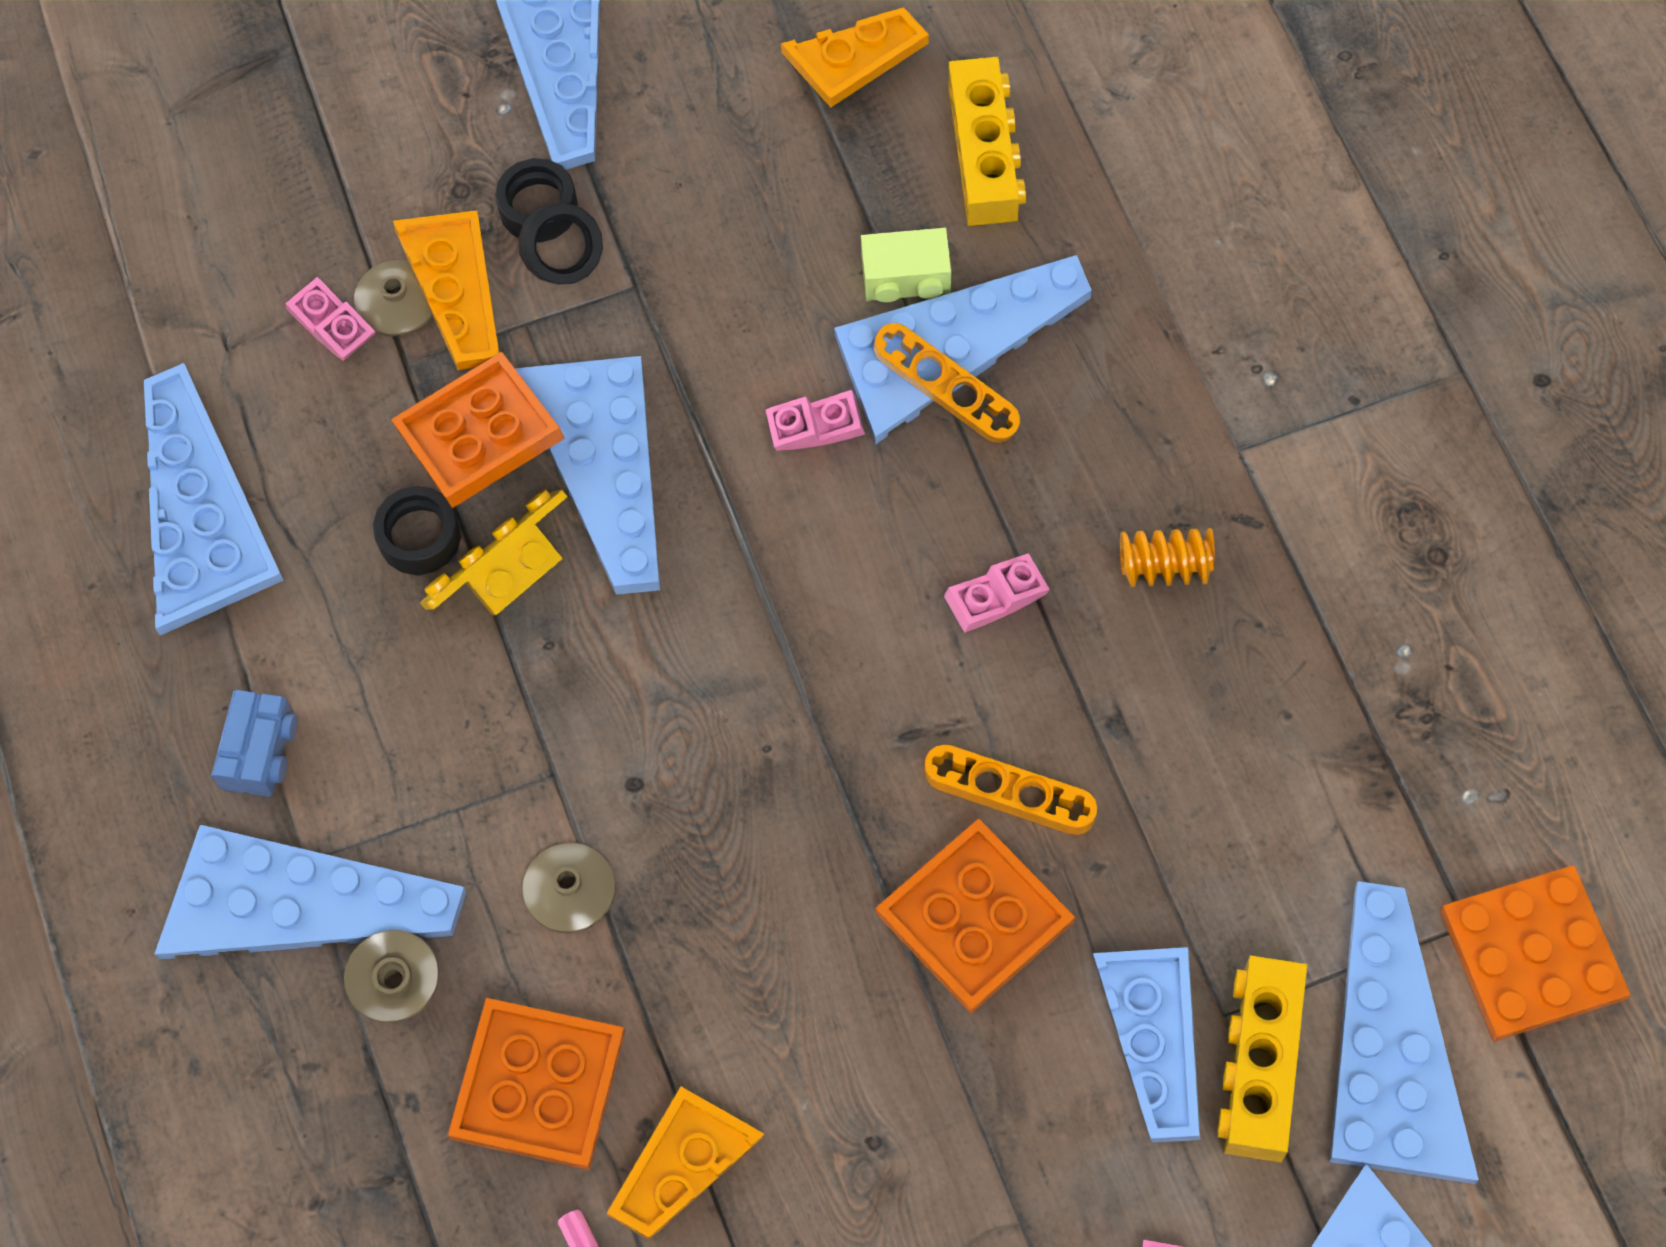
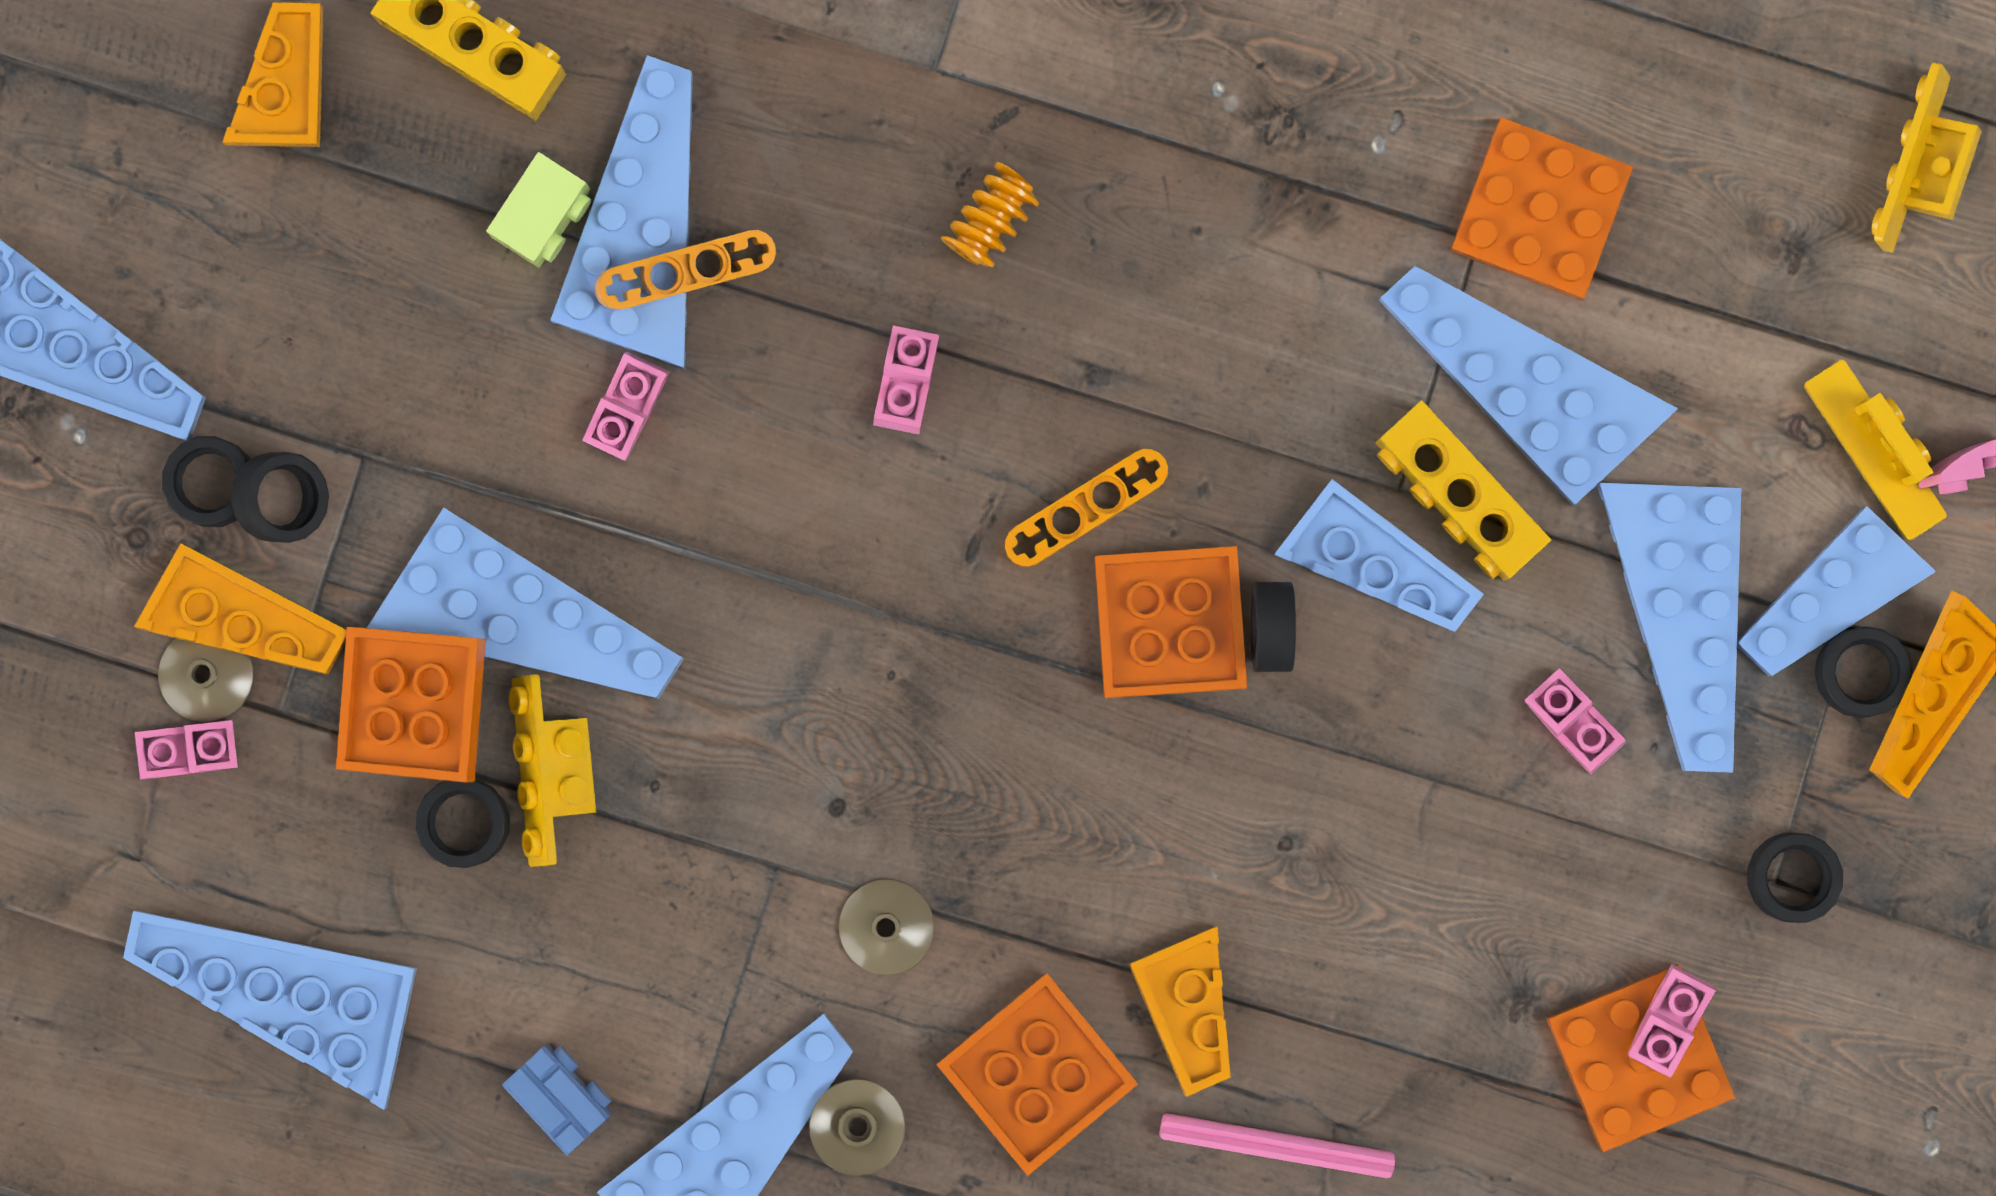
camera: 60 degrees left, 20 degrees up
(1034, 987) = (1273, 627): none -> black tyre

